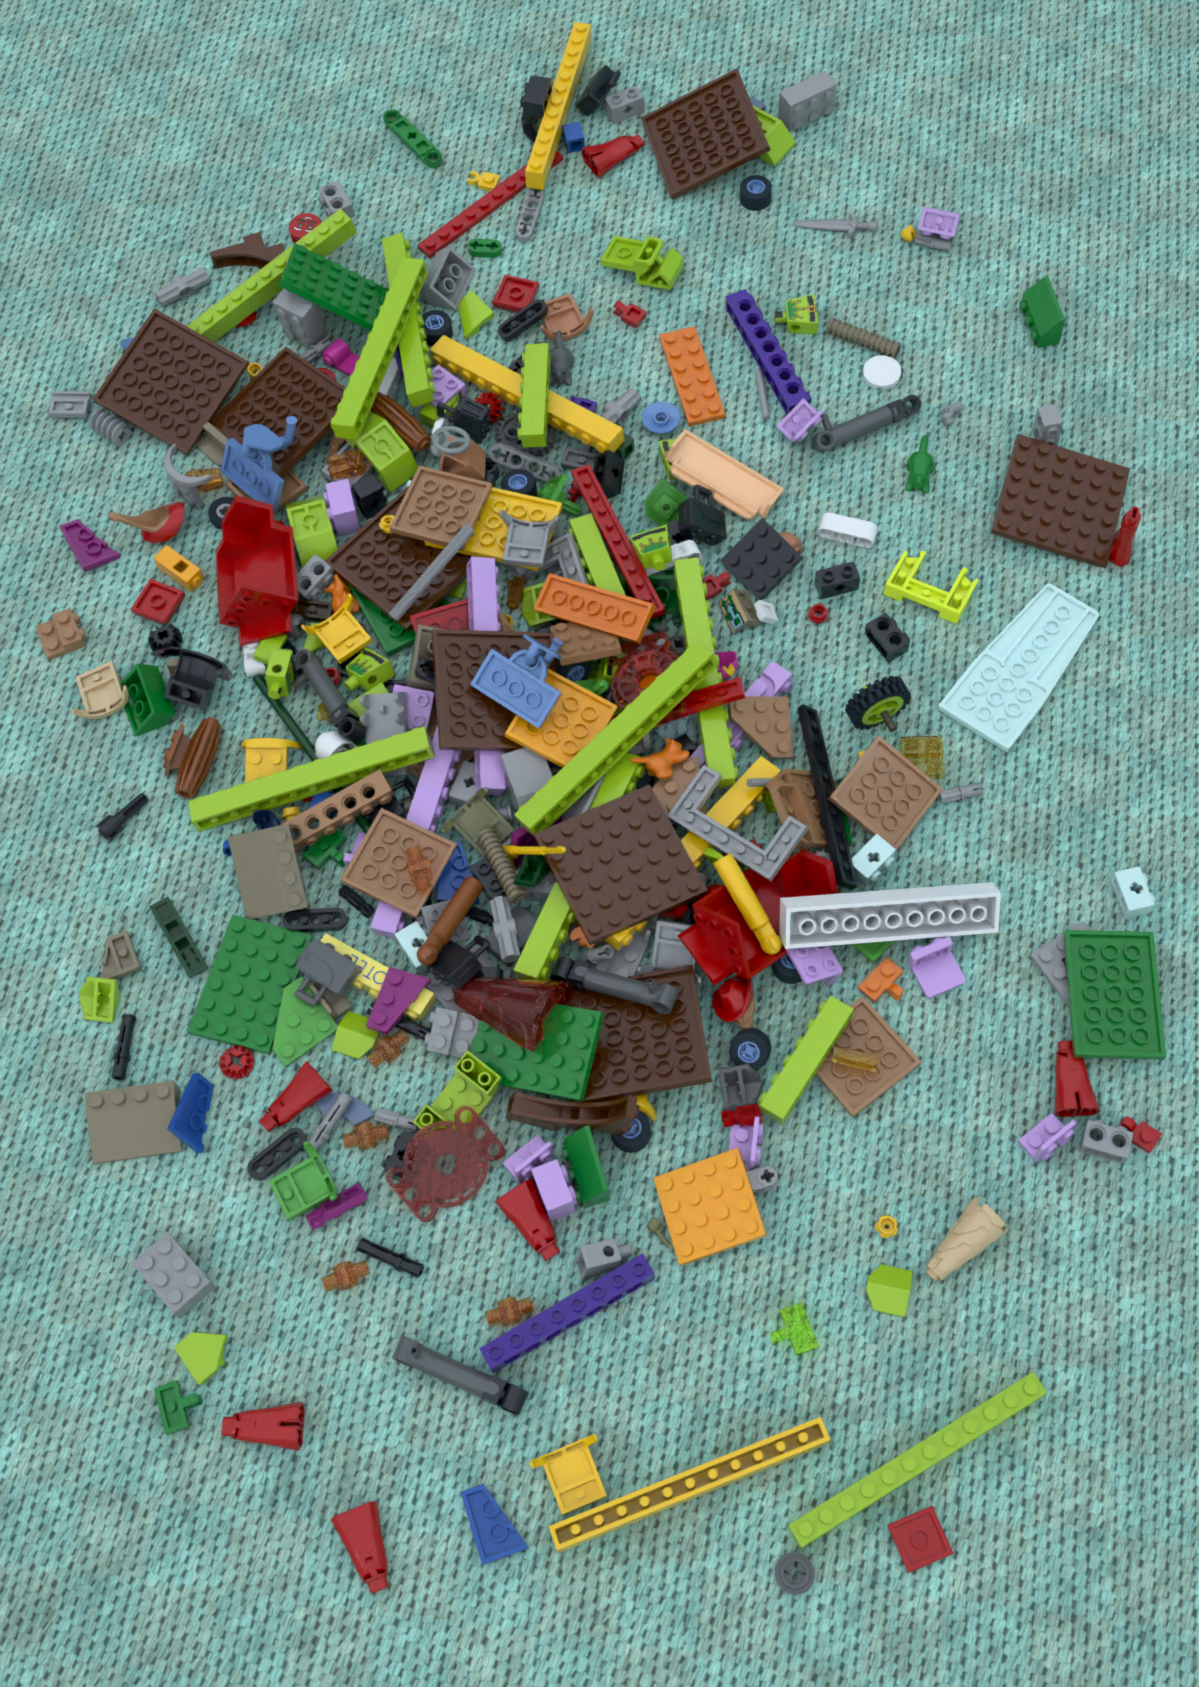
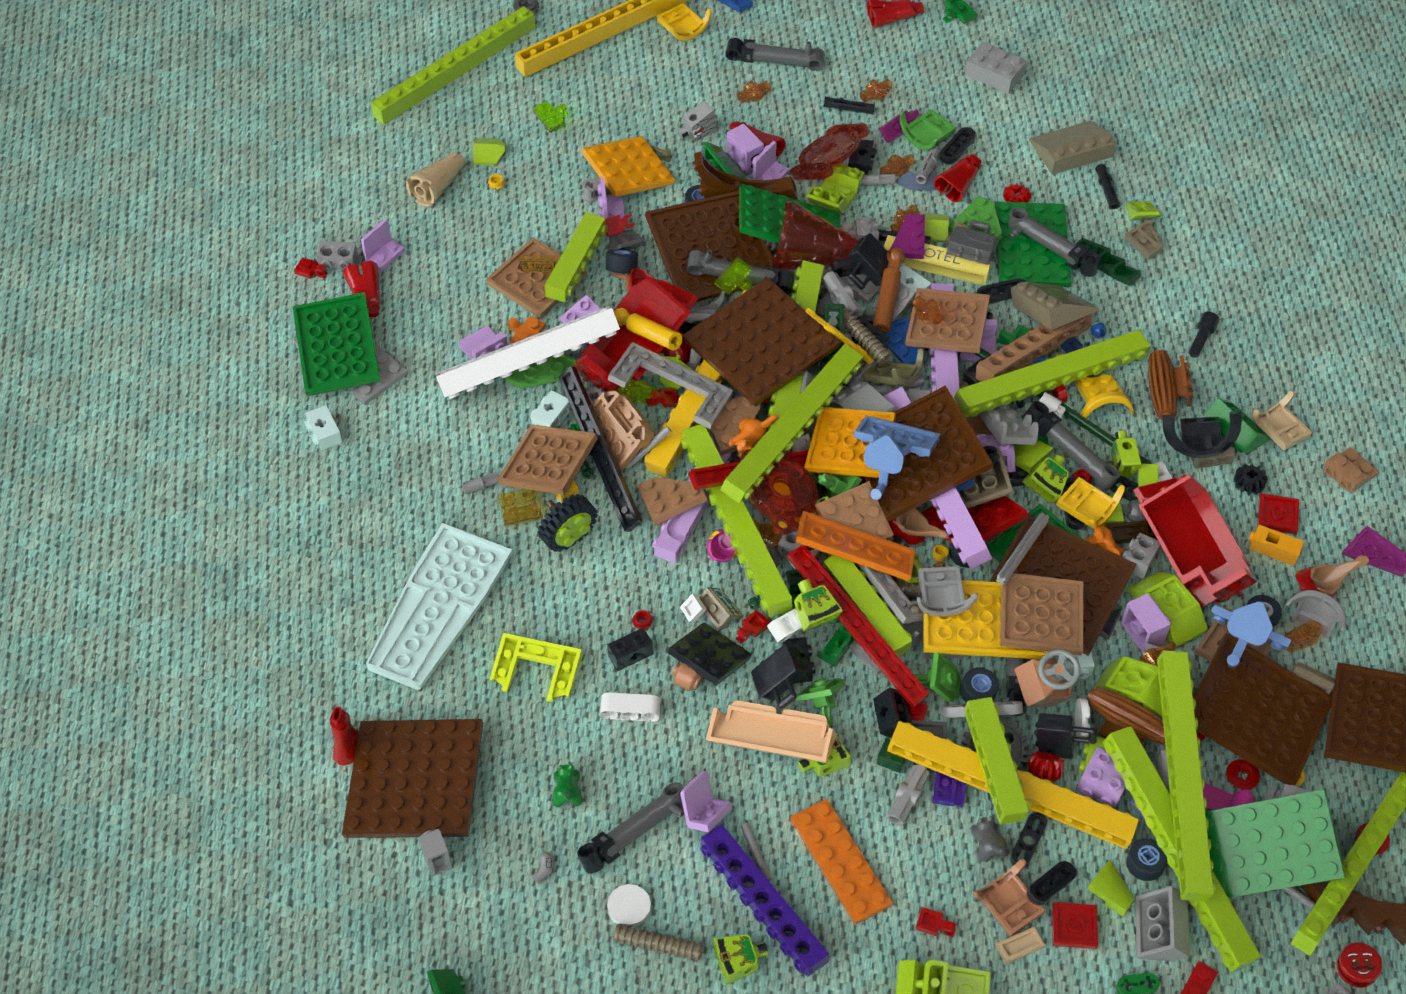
camera: 160 degrees right, 10 degrees down
(189, 1117) = (1031, 150): blue wing -> none
(202, 1354) = (955, 38): lime slope -> none
(232, 962) = (1076, 255): none -> dark grey piece
(252, 368) = (1314, 769): yellow hinge -> none
(369, 496) = (1124, 638): black brick -> none
(383, 524) = (1090, 609): yellow plate -> none
(560, 289) = (1020, 945): none -> tan tile
(567, 1313) = (713, 92): dark purple brick -> none
(620, 963) = (734, 276): none -> clear neon green plate
(661, 411) = (859, 787): medium blue dish -> none
(883, 639) = (573, 602): black brick -> none
(920, 1539) = (447, 32): red plate -> none

